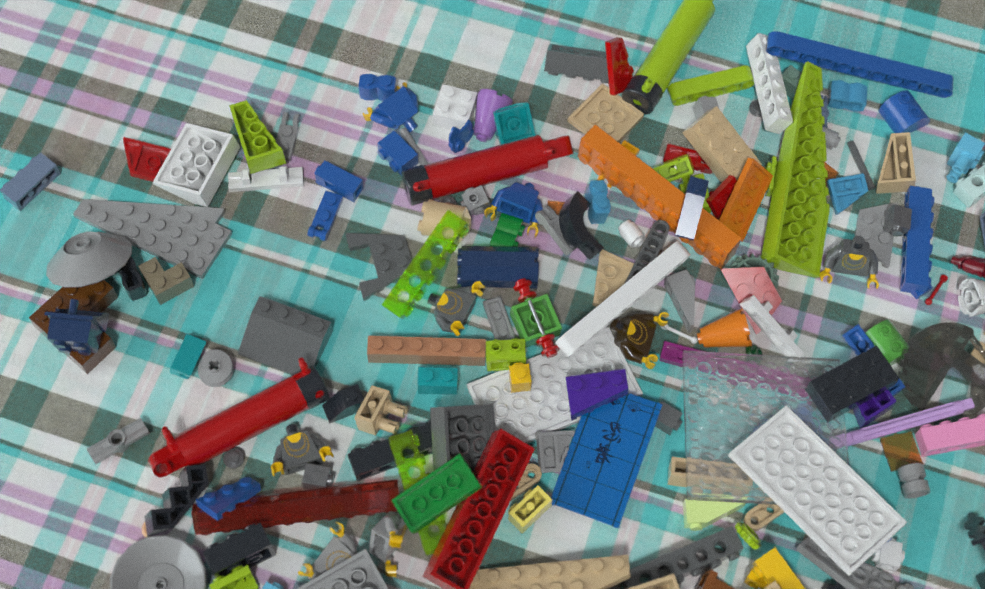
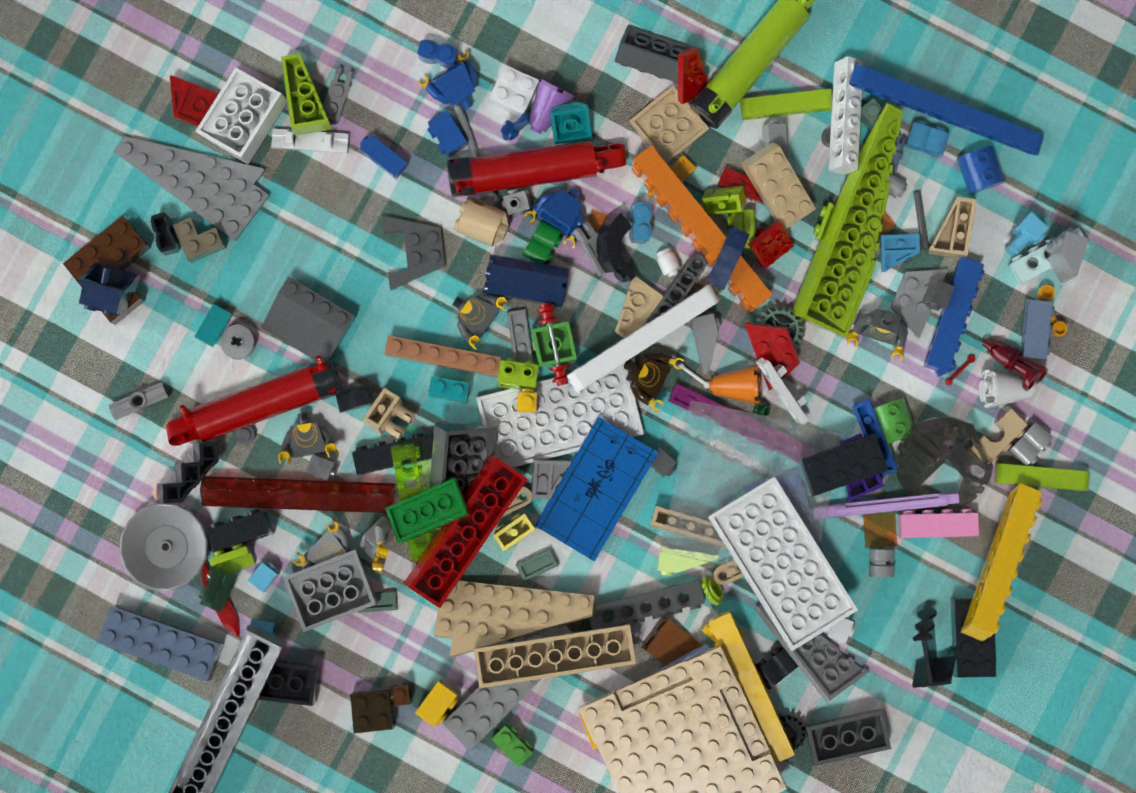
camera: 10 degrees right, 20 degrees up
(30, 181) = (72, 108): sand blue brick -> none
(88, 259) = (125, 210): light grey dish -> none
(227, 497) = (233, 478): blue wing -> none
(325, 215) = (365, 192): blue plate -> none
(448, 222) = (419, 303): clear neon green brick -> none
(559, 542) = (537, 565): none -> sand green tile
(594, 390) = (594, 430): dark purple wedge -> none
(746, 198) = (788, 248): orange plate -> none

